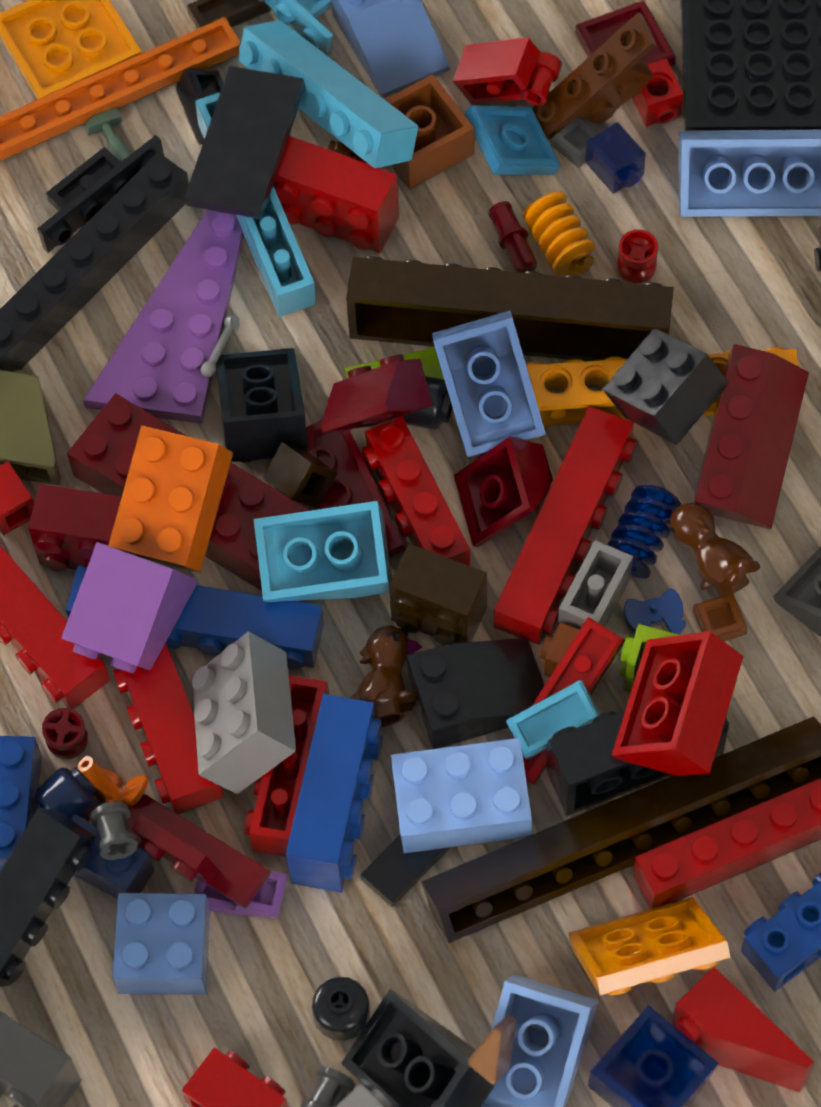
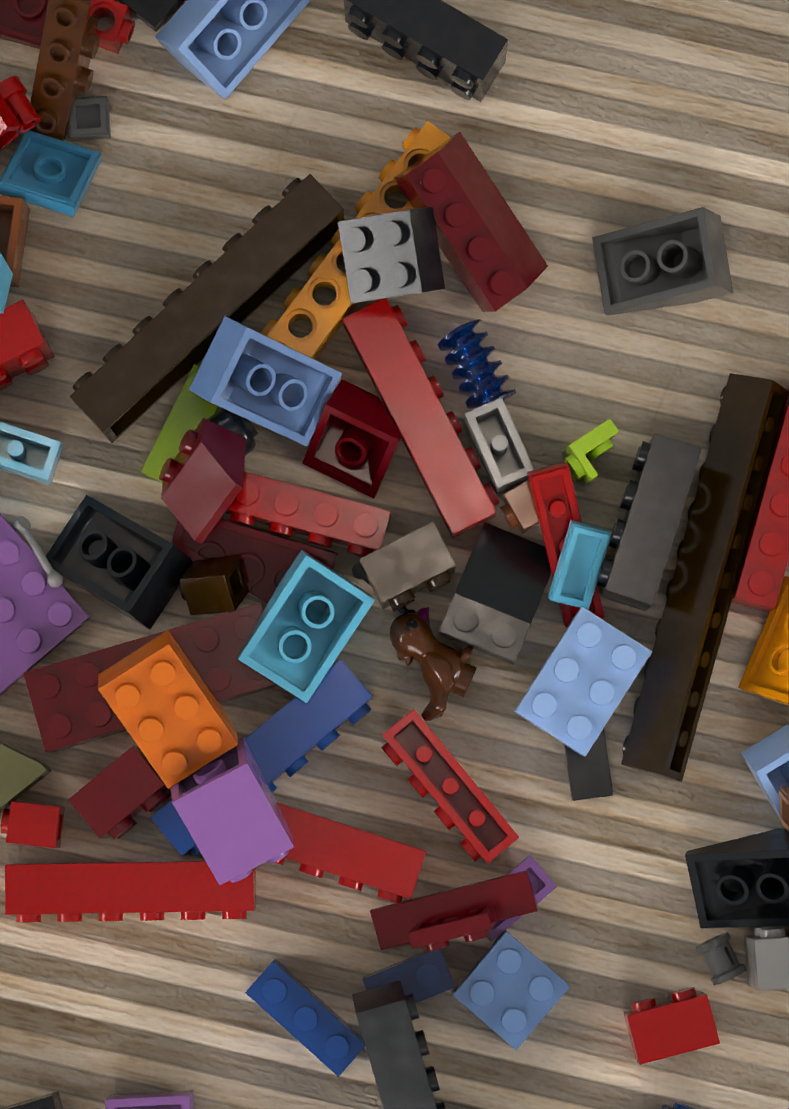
camera: 50 degrees left, 20 degrees up
(61, 724) = (272, 934): dark red wheel -> none
(68, 793) = (335, 970): dark blue head -> none
(110, 784) = (343, 931): orange plant -> none
(114, 830) = (408, 964): dark grey bush -> none
(243, 713) = (388, 792): light grey brick -> none
(334, 794) = (502, 774): blue brick -> none
(342, 1022) = (657, 888): black head -> none
(512, 237) = (135, 245): dark red axle -> none
(560, 234) = (166, 209): light orange piece -> none
(615, 158) = (135, 105): clear blue brick -> none
(637, 256) = (237, 157): red wheel -> none
(667, 607) = (536, 423): blue piece -> none
(679, 704) = (663, 475): red slope -> none
(718, 559) = (552, 332): reddish brown animal -> none
(721, 617) = (588, 368): dark orange tile -> none

